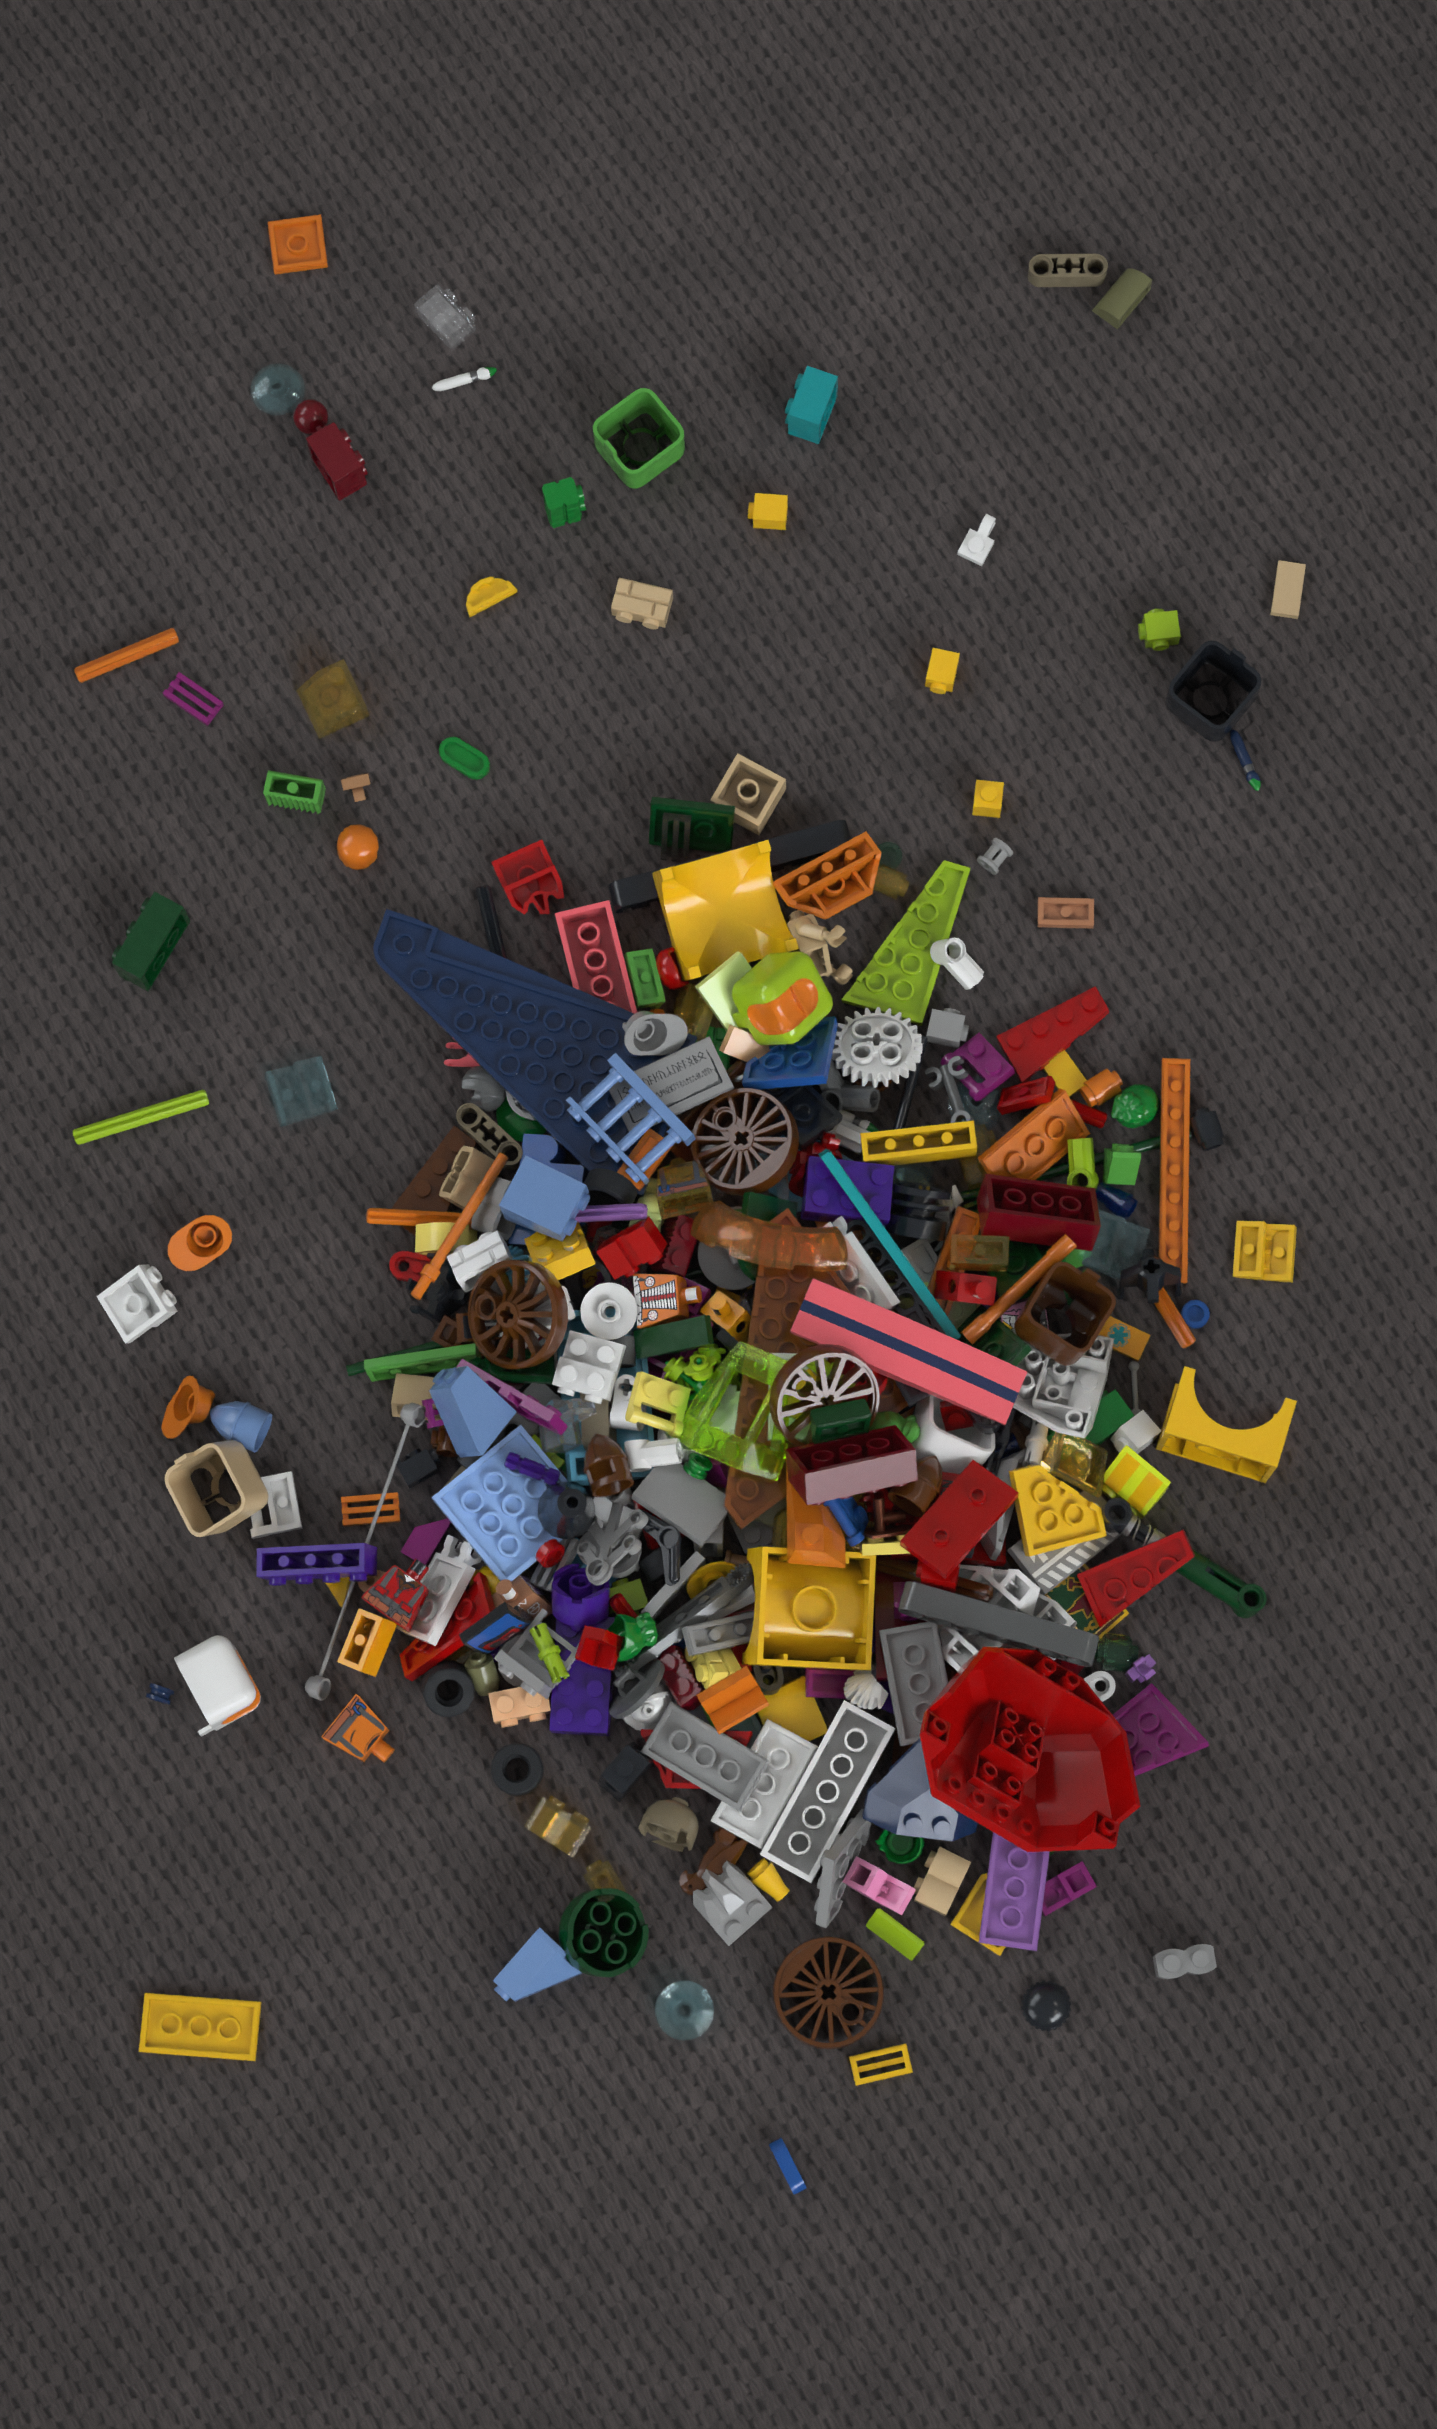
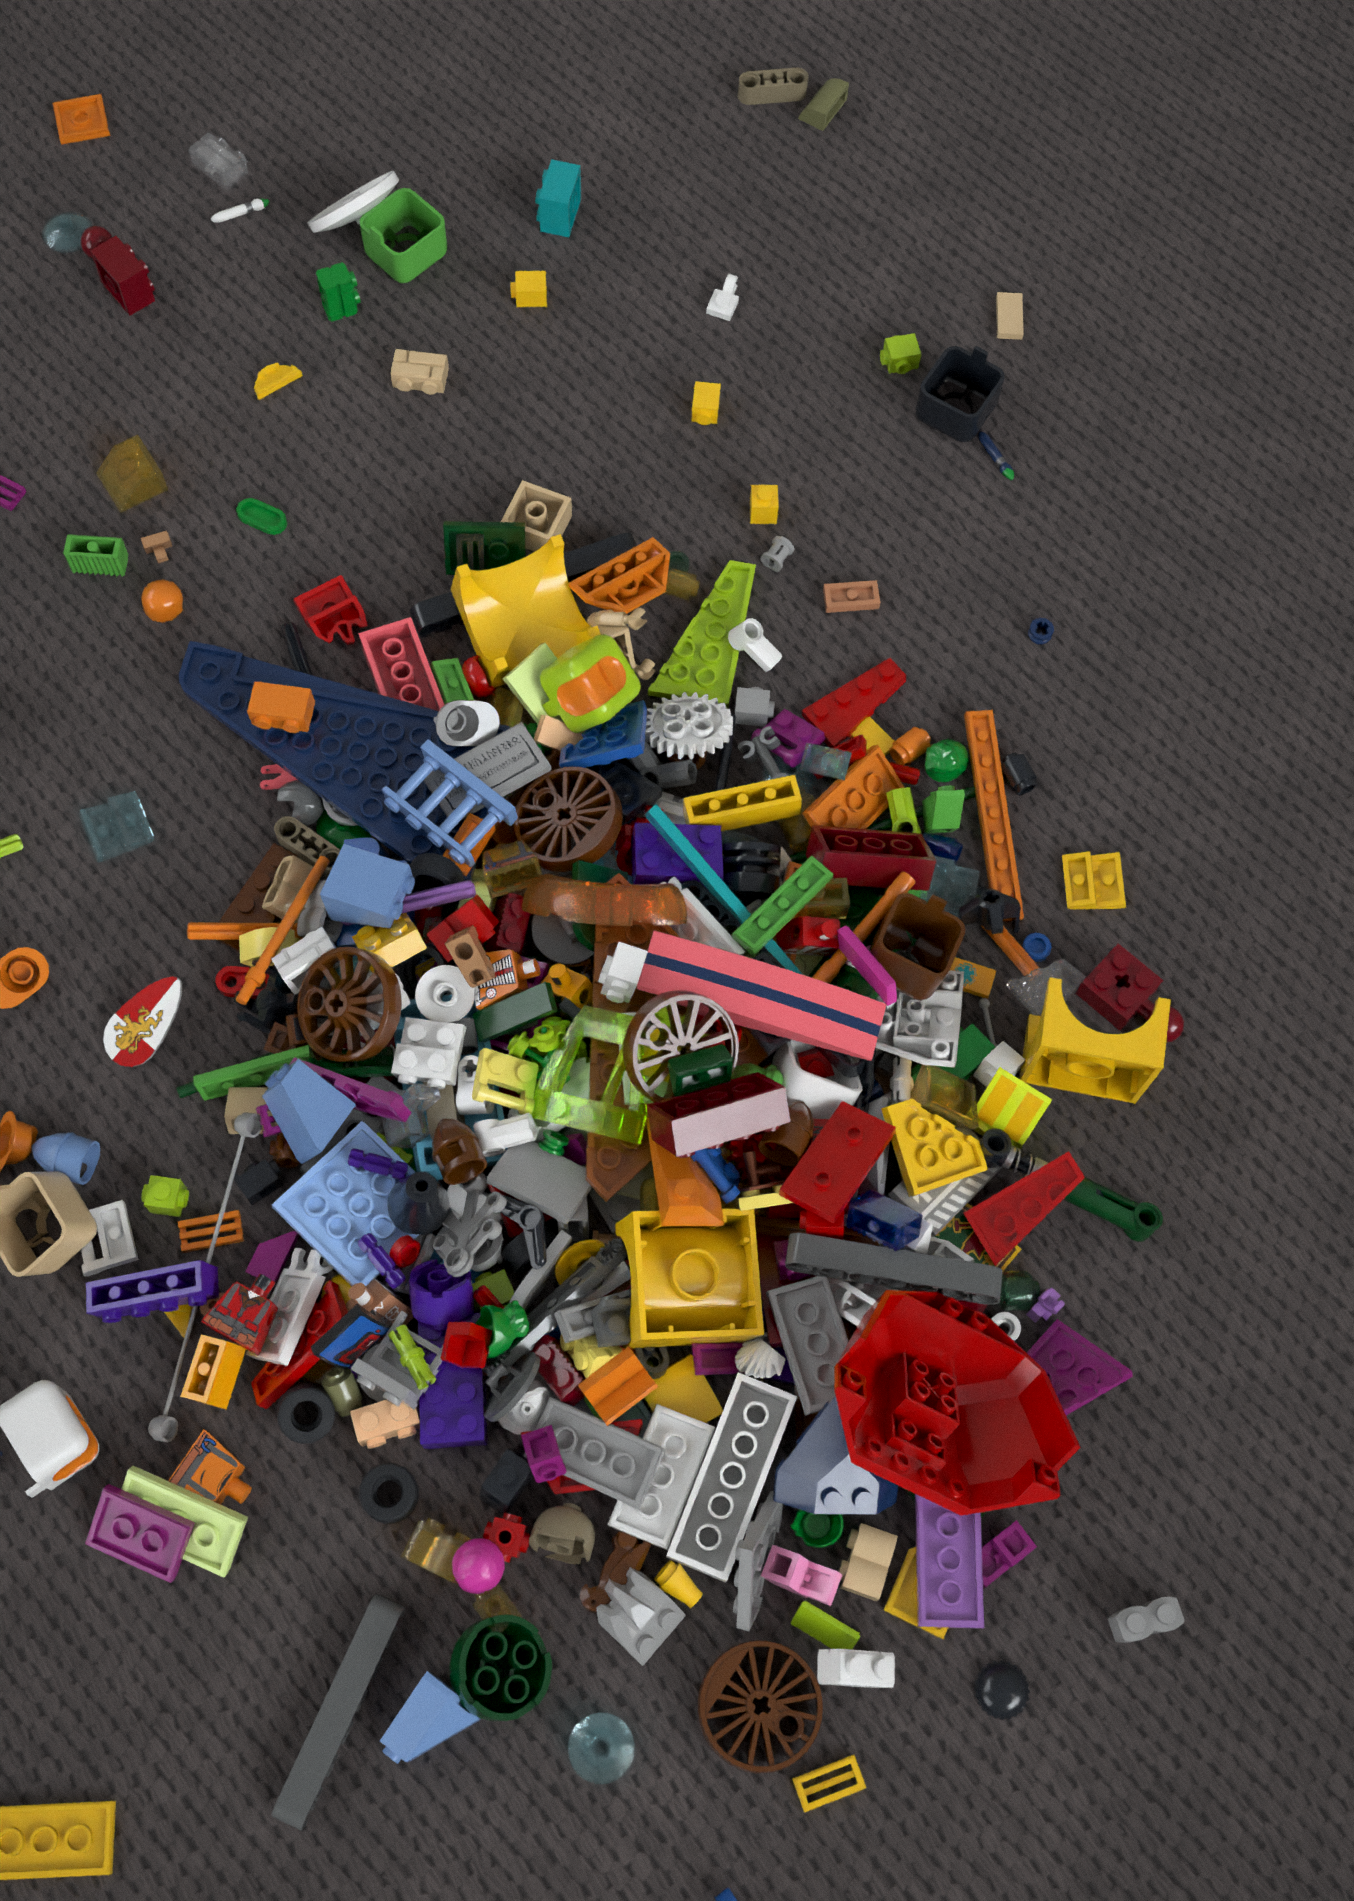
camera: 15 degrees left, 10 degrees down
(293, 1778) = (139, 1533): none -> magenta tile
(318, 1300) = (143, 1023): none -> shield
(328, 1772) = (215, 1528): none -> yellowish green tile
(331, 1472) = (165, 1196): none -> lime brick
(458, 1950) = (335, 1715): none -> dark grey beam
(473, 998) = (281, 707): none -> orange brick
(528, 1560) = (381, 1260): none -> dark purple axle
(588, 396) = (354, 204): none -> white dish
(591, 1843) = (478, 1565): none -> dark pink piece
(630, 1824) = (519, 1540): none -> red brick
(636, 1279) = (470, 957): none -> medium nougat leg
(659, 1752) = (543, 1454): none -> magenta bracket
(733, 1642) = (611, 1321): none -> dark grey bracket
(778, 1316) = (622, 972): none -> white brick
(916, 1971) = (856, 1668): none -> white brick
(942, 1260) = (782, 905): none -> bright green tile
(994, 1579) = (884, 1220): none -> clear blue brick
(1009, 1103) = (825, 761): none -> clear light blue plate
(1014, 1330) = (867, 965): none -> dark pink tile
(1203, 1354) = (1032, 988): none -> clear slope
(1265, 975) = (1042, 623): none -> dark blue bush
(1269, 1384) = (1137, 986): none -> dark red brick

